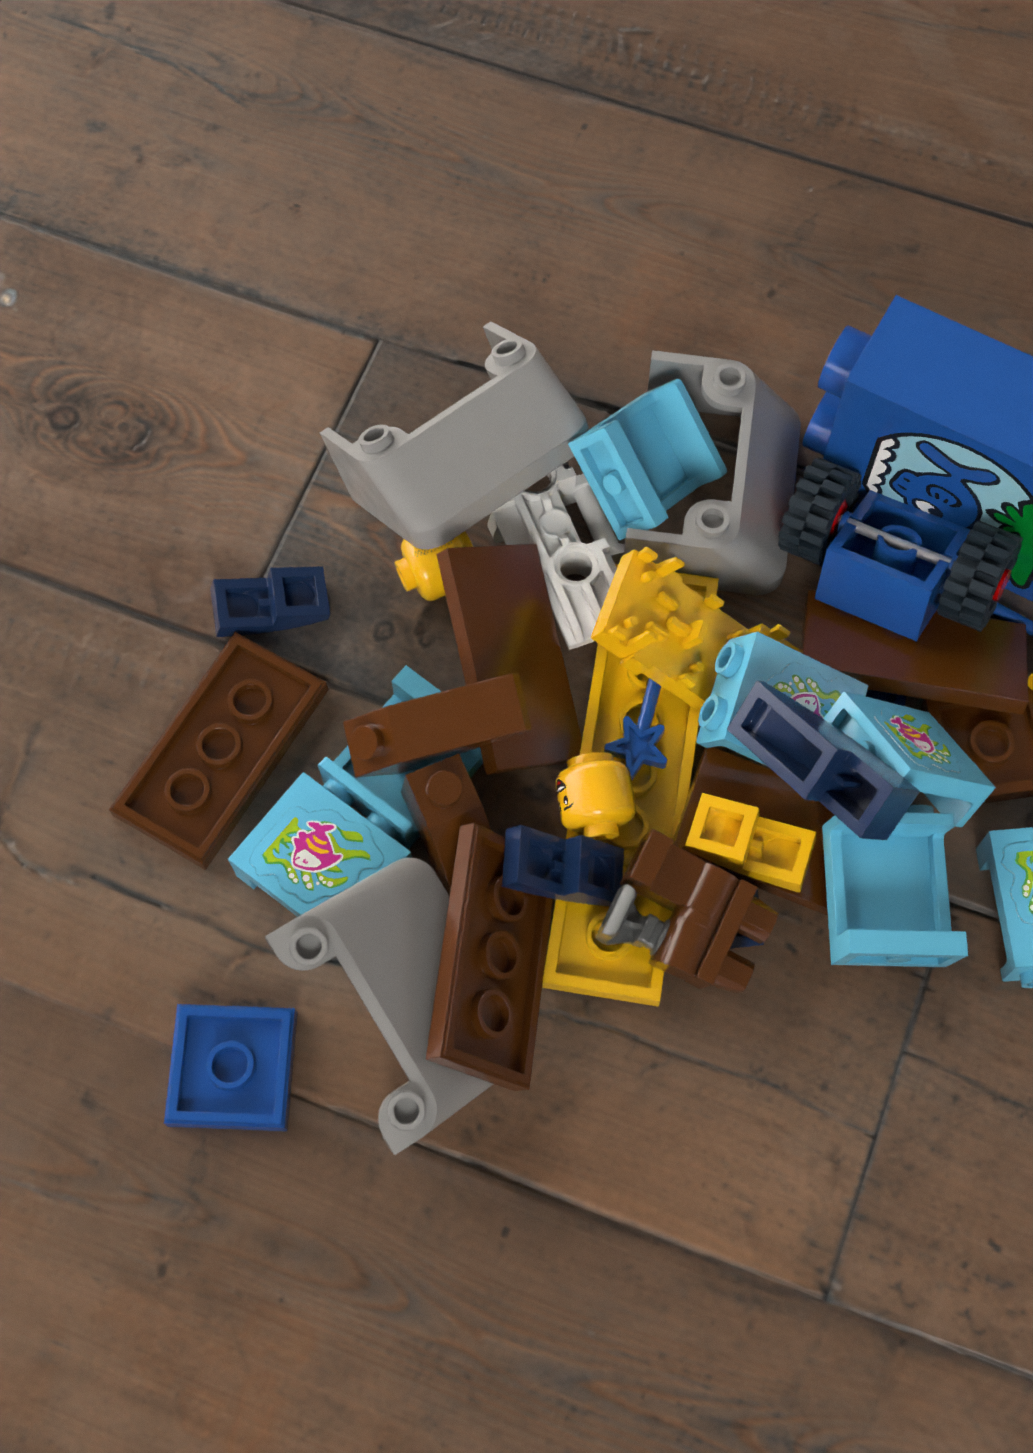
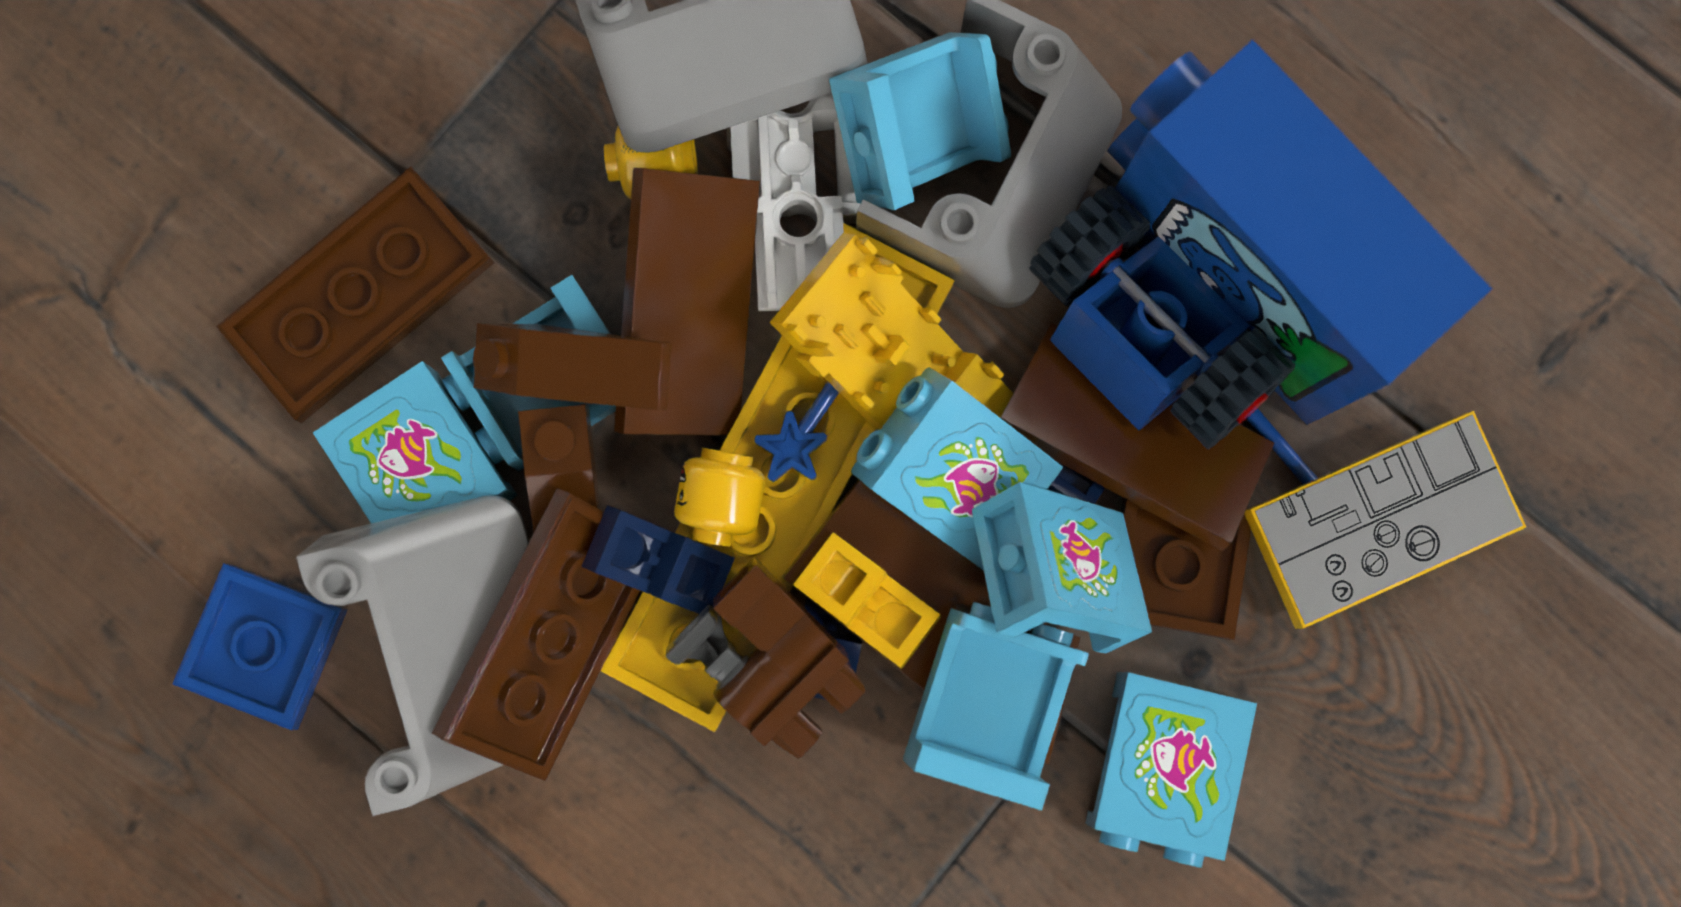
camera: 15 degrees right, 15 degrees up
(263, 605) = (461, 142): dark blue slope -> none
(822, 762) = (959, 561): dark blue slope -> none

